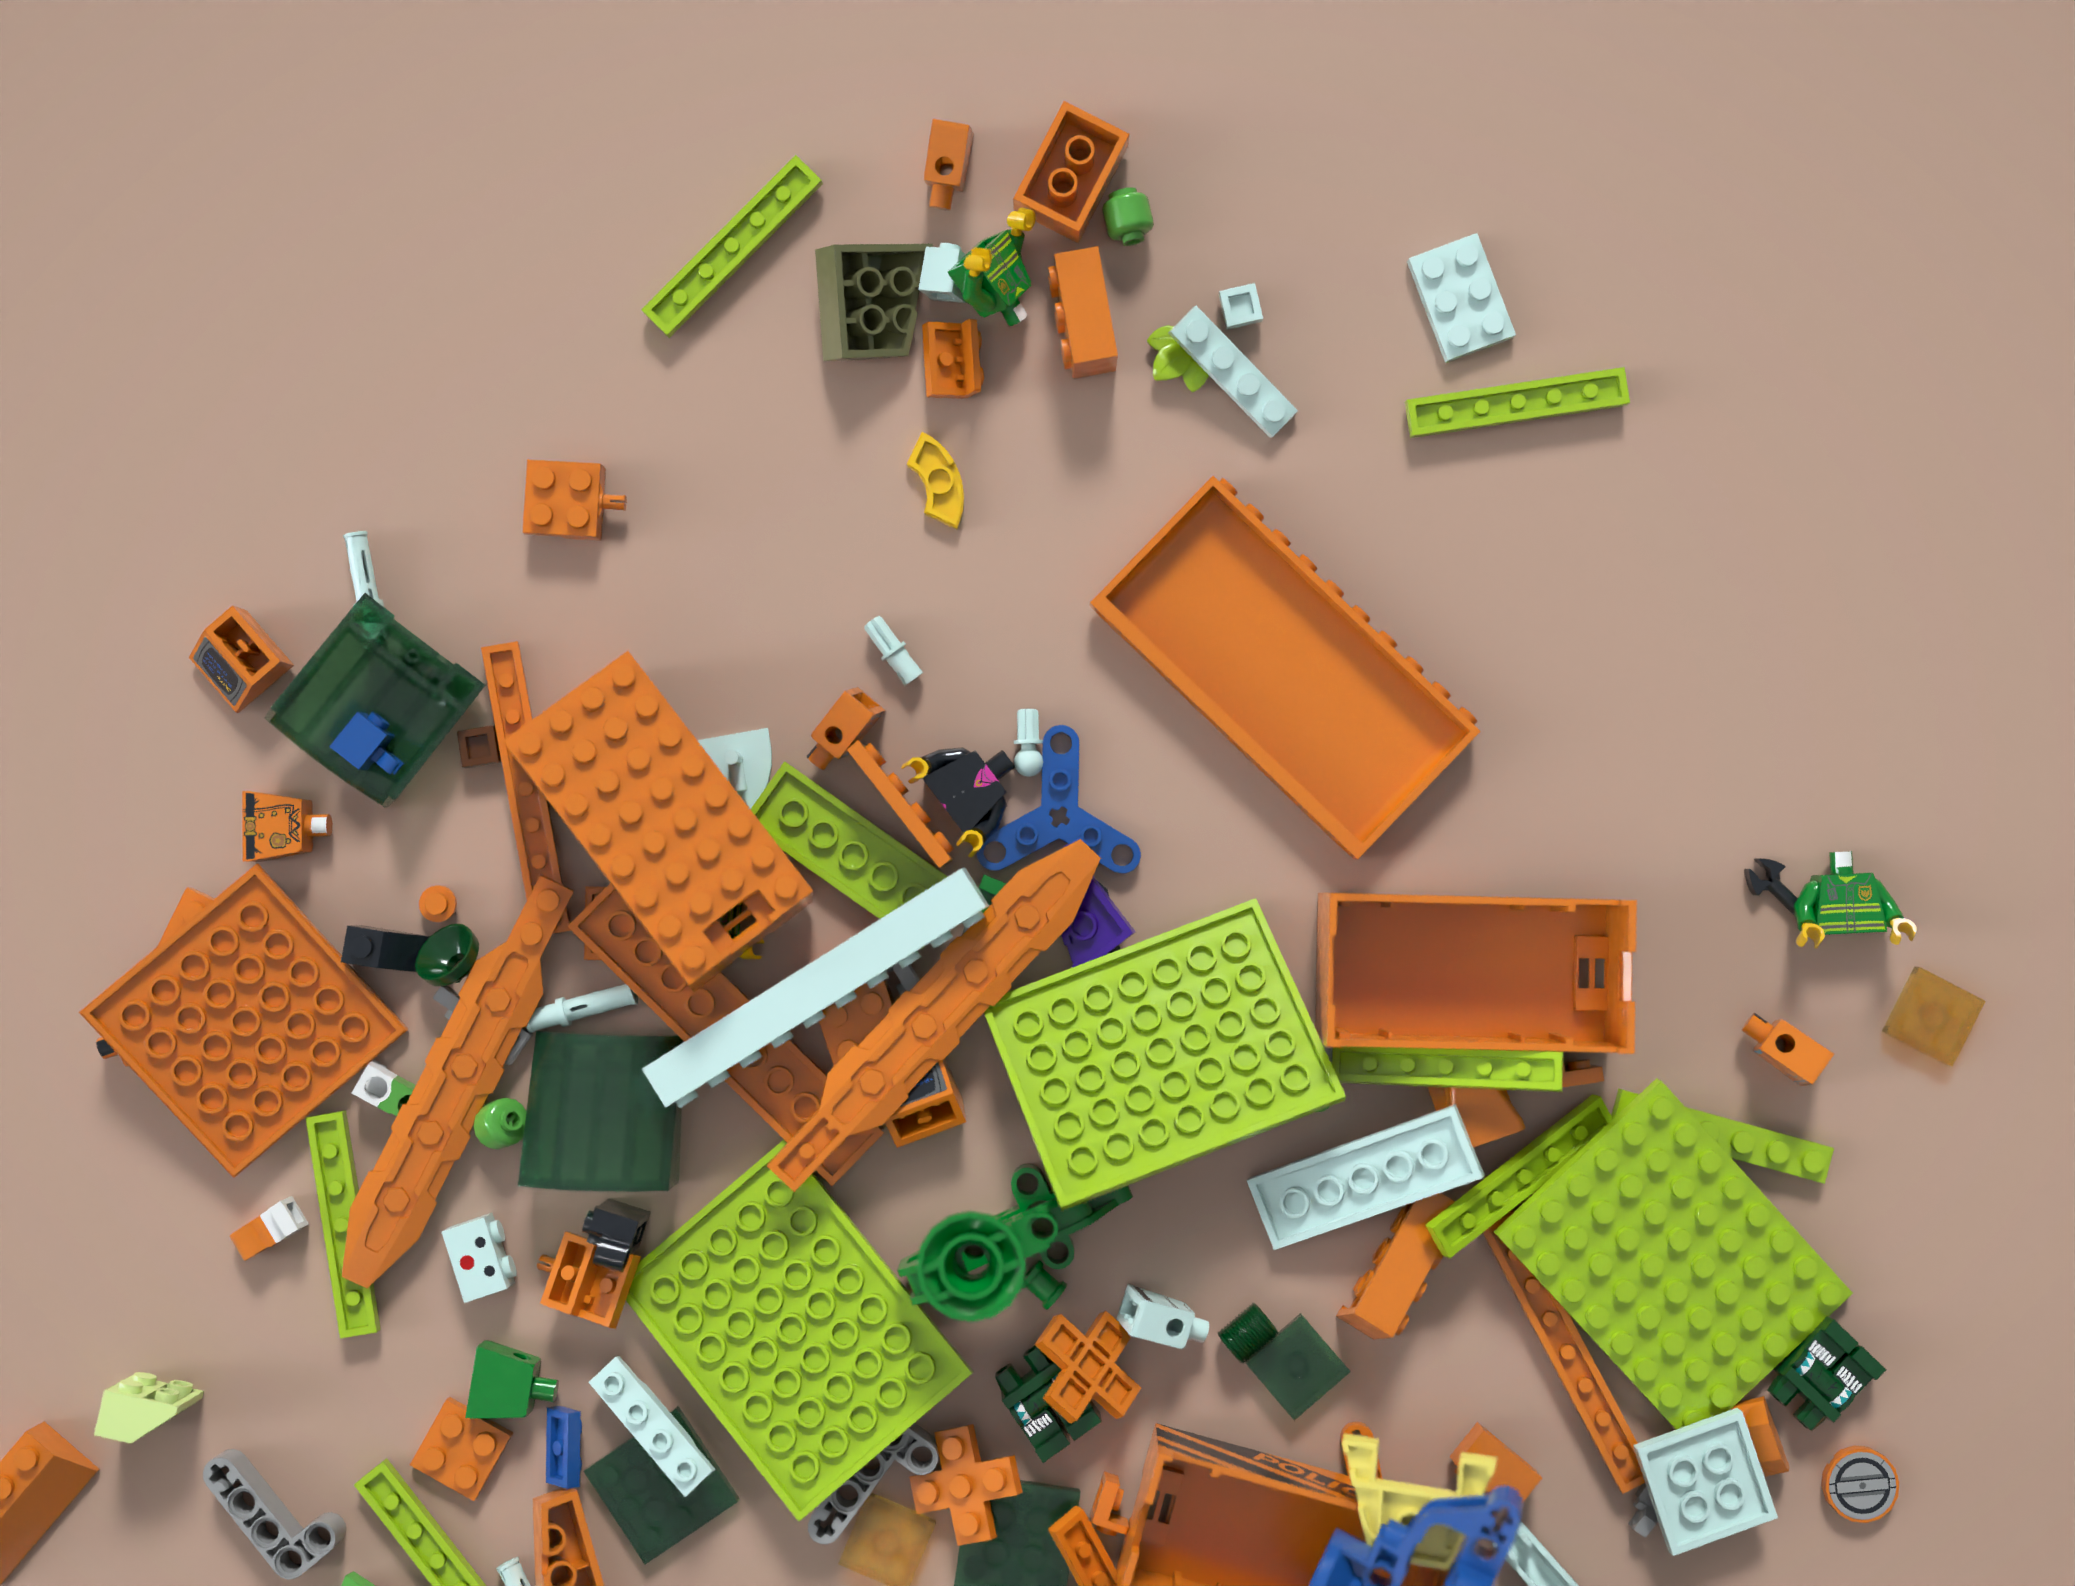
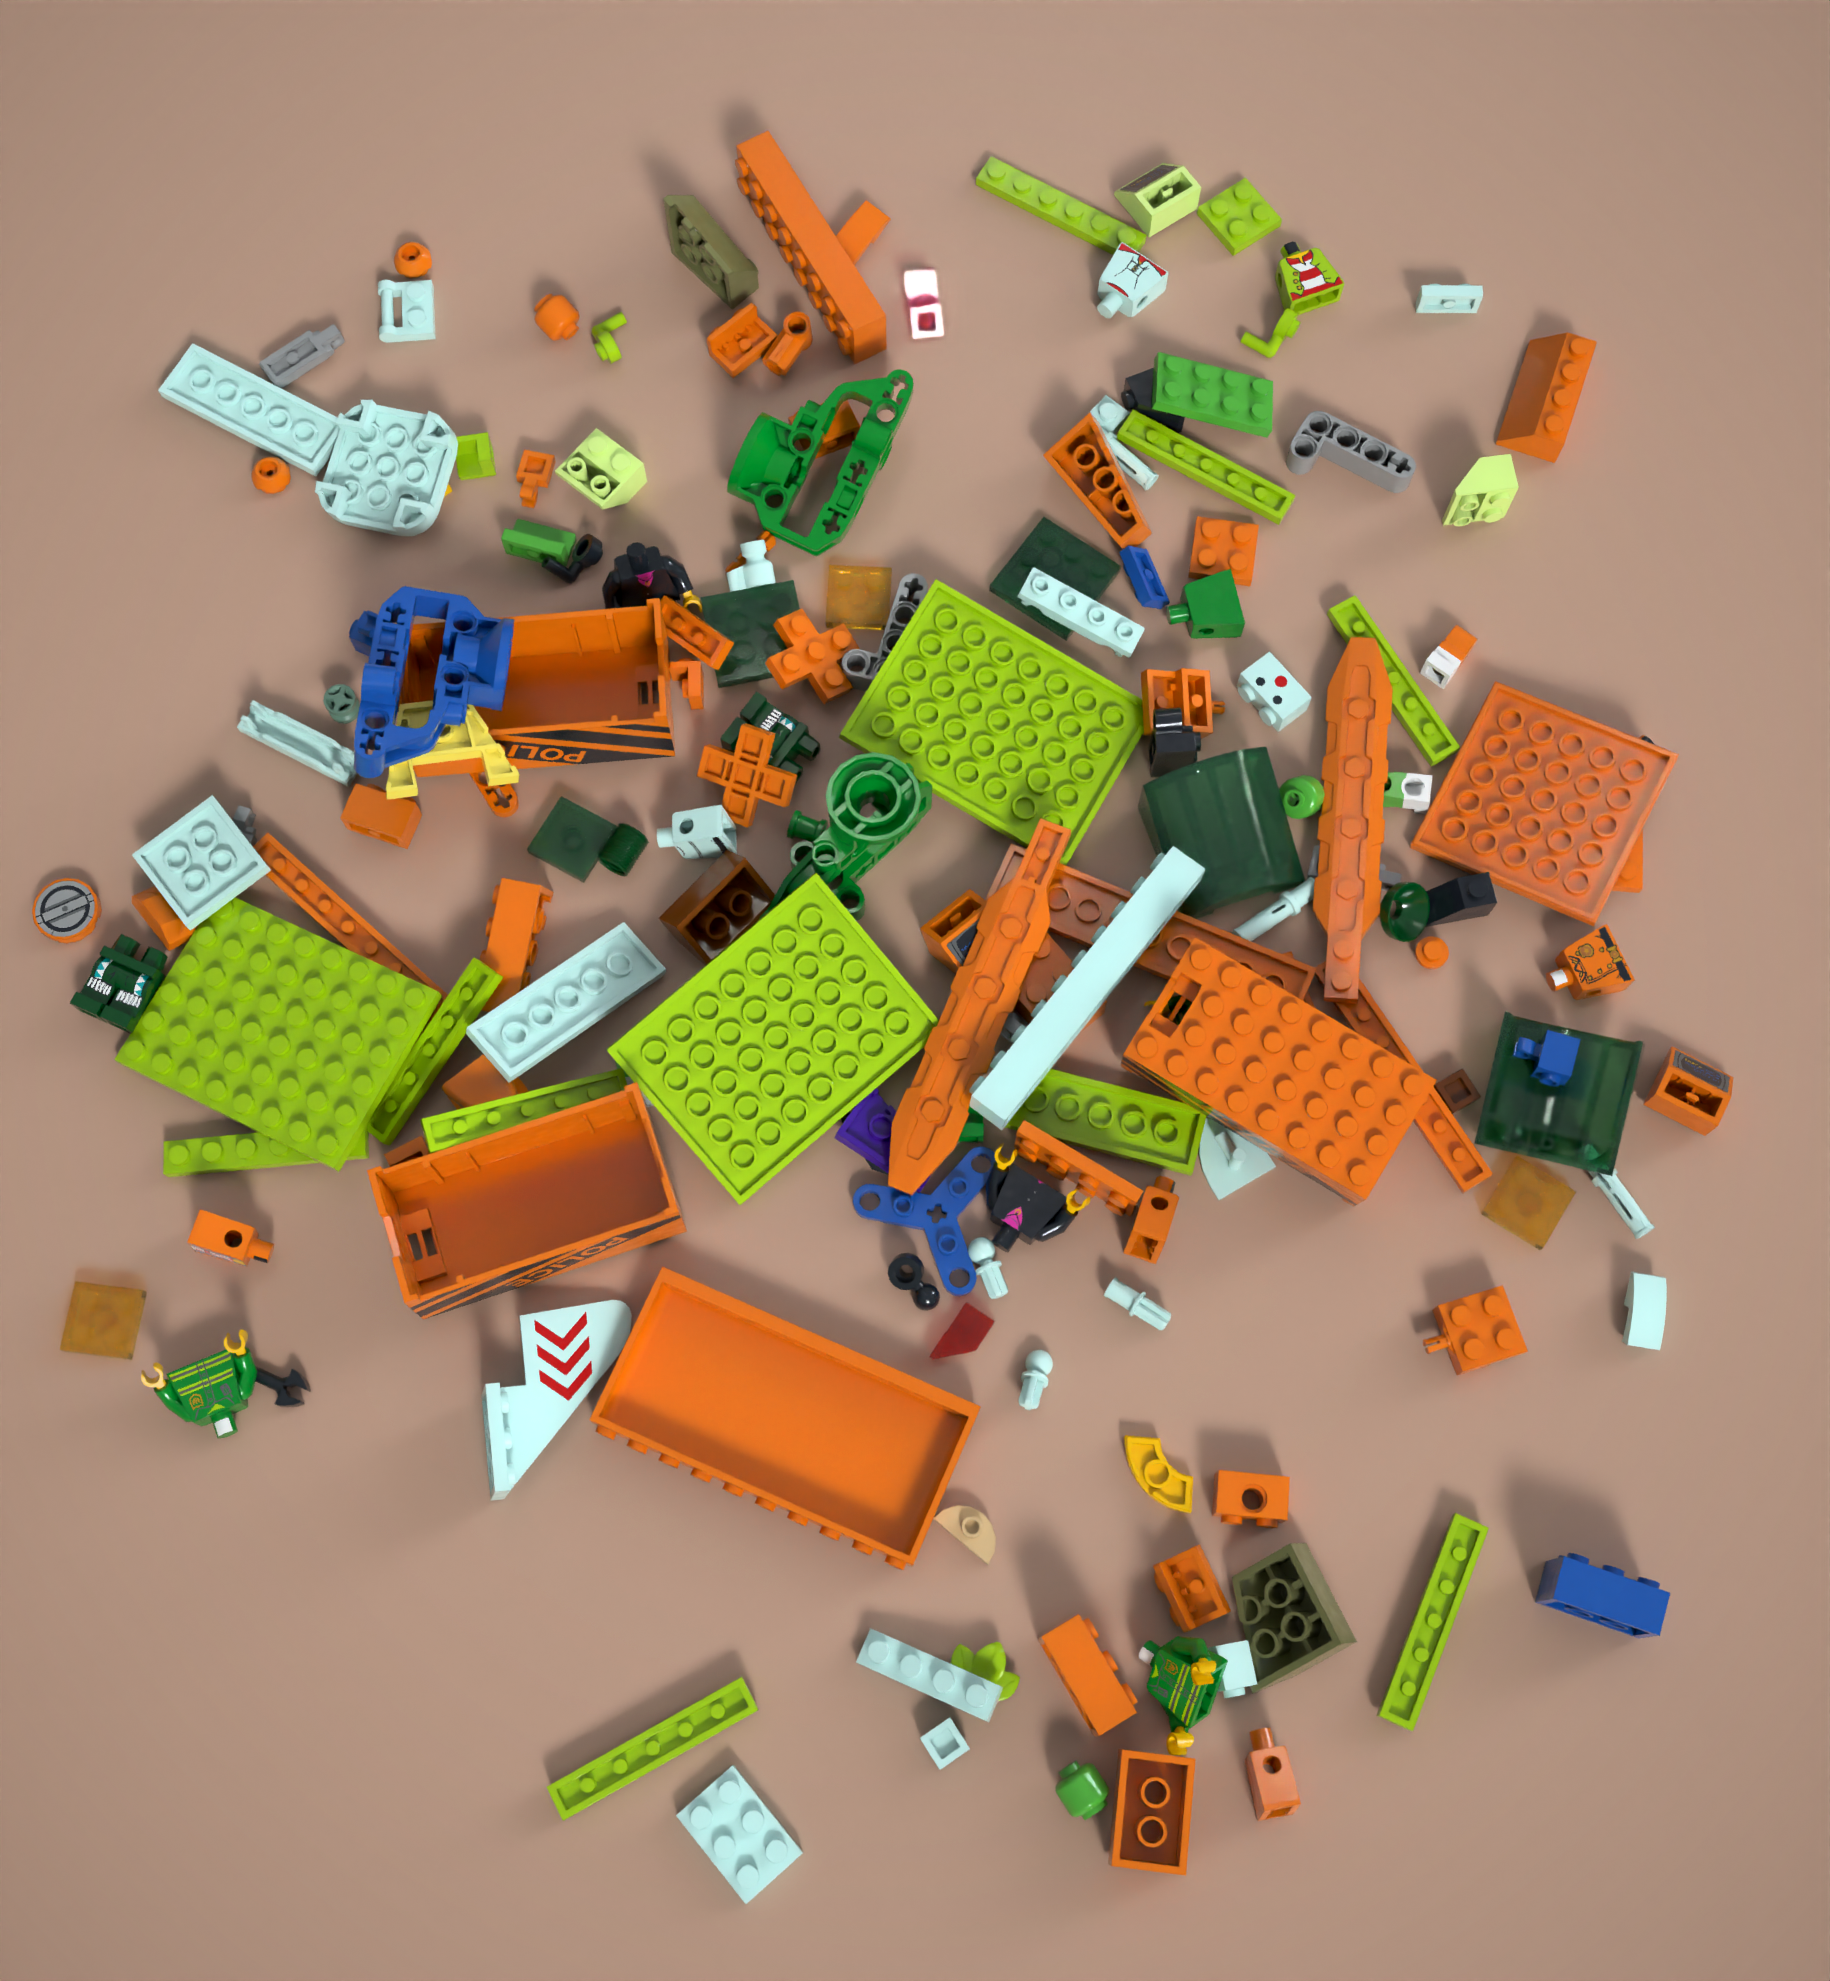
camera: 155 degrees right, 15 degrees down
(389, 457) = (1647, 1310): none -> light aqua slope
(457, 609) = (1528, 1202): none -> clear yellow plate
(561, 204) = (1603, 1596): none -> blue brick
(872, 440) = (1270, 1489): none -> orange brick
(1014, 629) = (1034, 1379): none -> light aqua axle
(1076, 686) = (964, 1333): none -> clear red slope
(1101, 739) = (924, 1294): none -> black plate
(1142, 495) = (970, 1529): none -> tan plate
(1168, 1226) = (718, 907): none -> dark orange slope
(1487, 802) = (562, 1362): none -> light aqua piece

